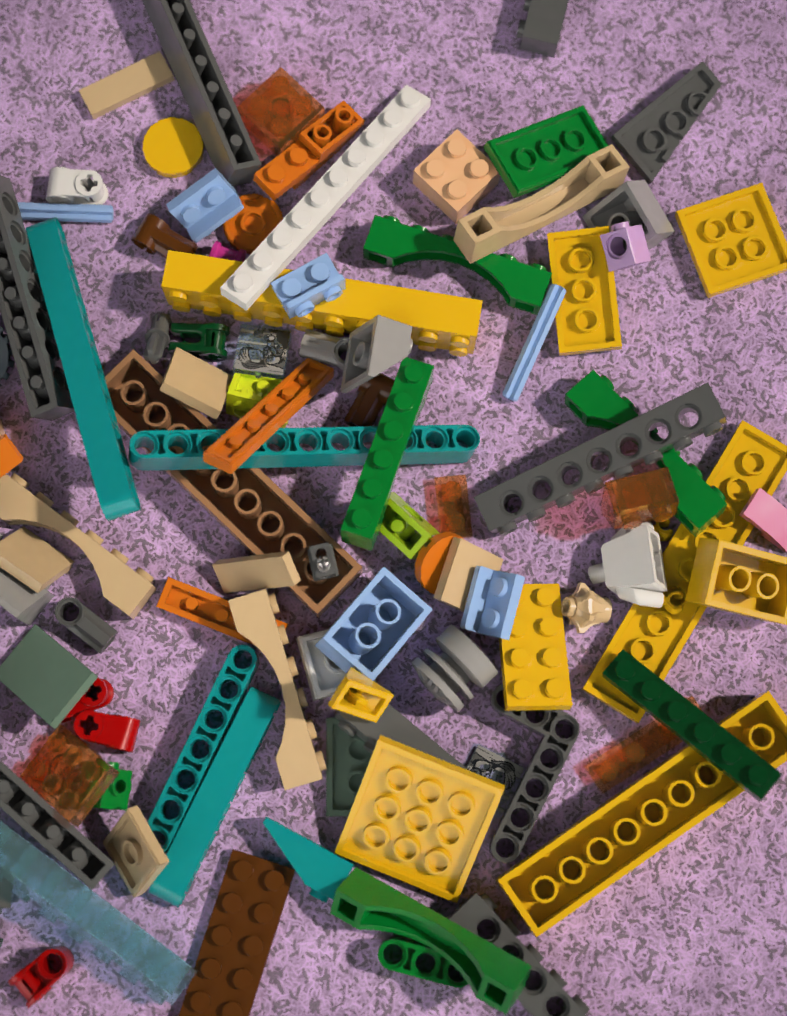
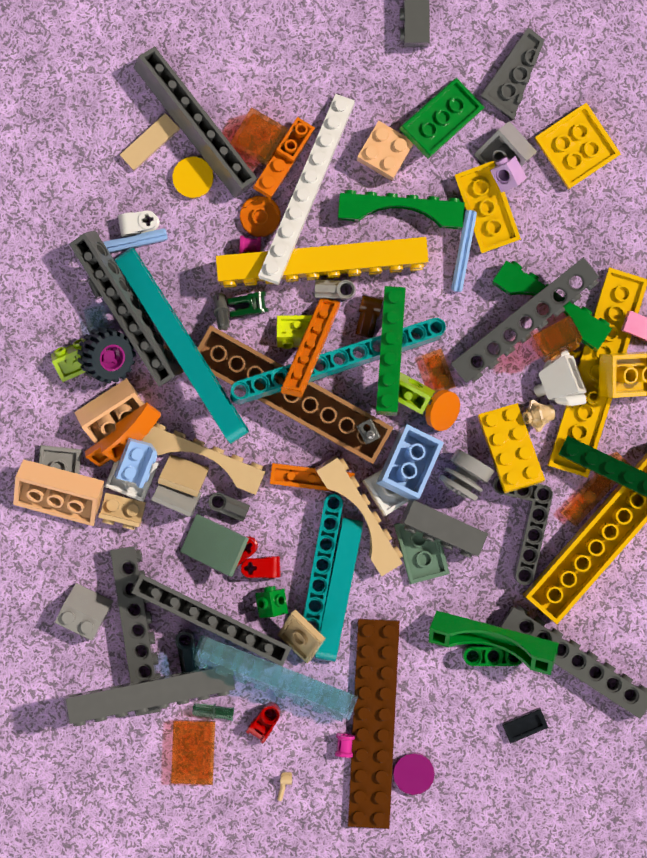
camera: 10 degrees left, 10 degrees up
(69, 775) = (247, 601): clear orange plate -> none
(159, 238) = (202, 243): reddish brown piece -> none
(196, 383) = (255, 335): tan tile -> none
(206, 205) = (228, 215): light blue bracket -> none
(256, 572) = (328, 447): tan tile -> none
(262, 351) = (290, 301): piece -> none
(309, 286) = (313, 257): light blue bracket -> none
(315, 865) = (412, 615): teal slope -> none
(360, 696) = (414, 510): yellow slope -> none
(374, 349) = (366, 289): light grey slope -> none
(419, 819) = (468, 572): yellow plate -> none
(459, 571) = (460, 415): tan tile -> none
(492, 602) = (480, 428): light blue bracket -> none
(499, 769) = (503, 536): piece -> none
(502, 225) = (436, 170): tan arch -> none

